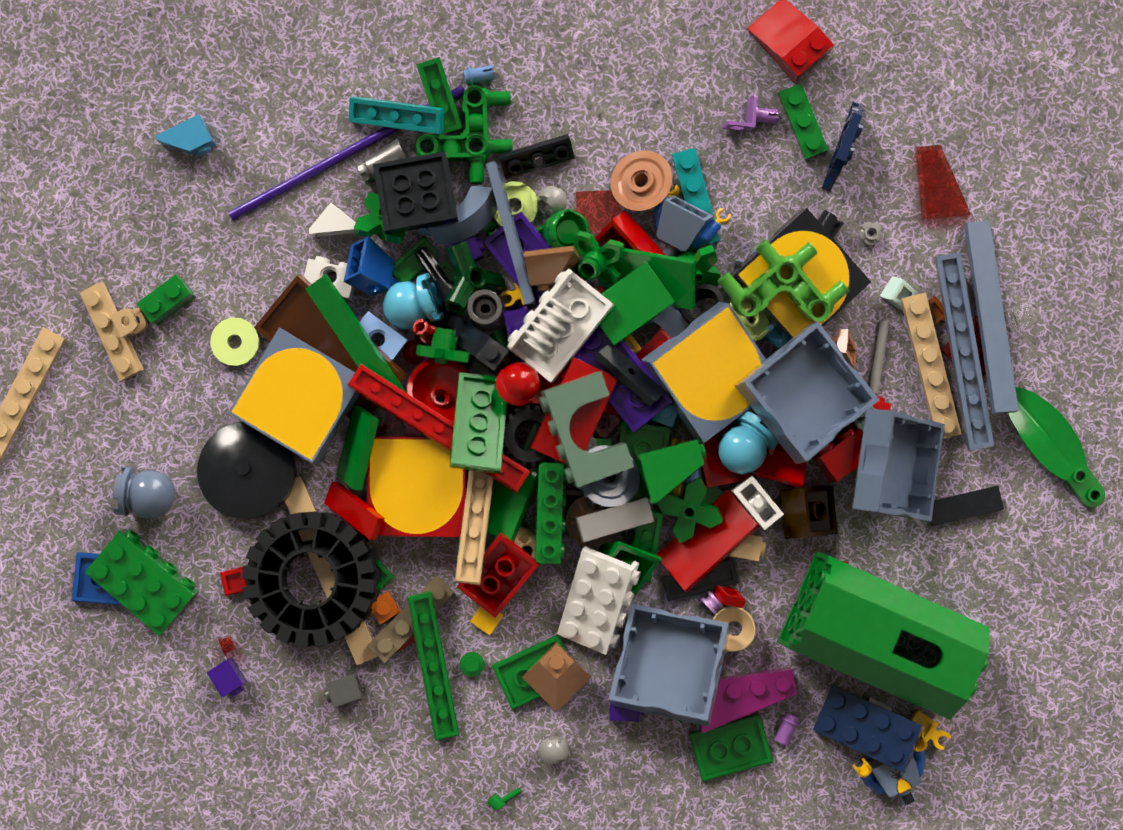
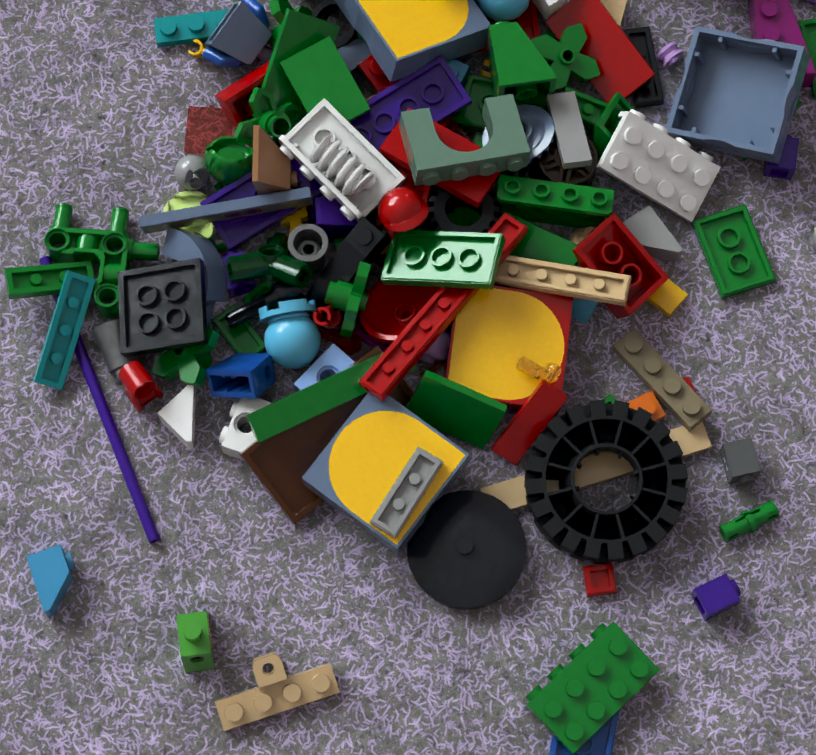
camera: 80 degrees left, 15 degrees down
(145, 493) = (483, 667): sand blue tile -> none
(148, 260) = (196, 641): none -> bright green torso
(166, 300) = (247, 622): green brick -> none
(226, 645) = (676, 596): clear red piece -> none
(229, 328) = (315, 566): yellowish green tile -> none
(273, 415) = (406, 492): none -> light grey tile
(296, 700) = (749, 521): none -> green pin
(354, 184) = (138, 385): none -> red piece
(391, 513) = (535, 371): none -> clear yellow arm
(433, 665) = (718, 357): green tile -> none
(472, 664) = (719, 318): green plate -> none
(478, 74) = (31, 239): medium blue pin -> none
(538, 597) = (654, 235): none -> light grey slope
(549, 153) = (136, 181): black tile -> none
(556, 677) = (739, 224): medium nougat slope -> none
(630, 375) = (407, 93): black tile -> none
(635, 169) = (167, 70): nougat gear -> none
(729, 596) = (664, 34): red tile -> none
(745, 638) = (696, 17): tan piece -> none

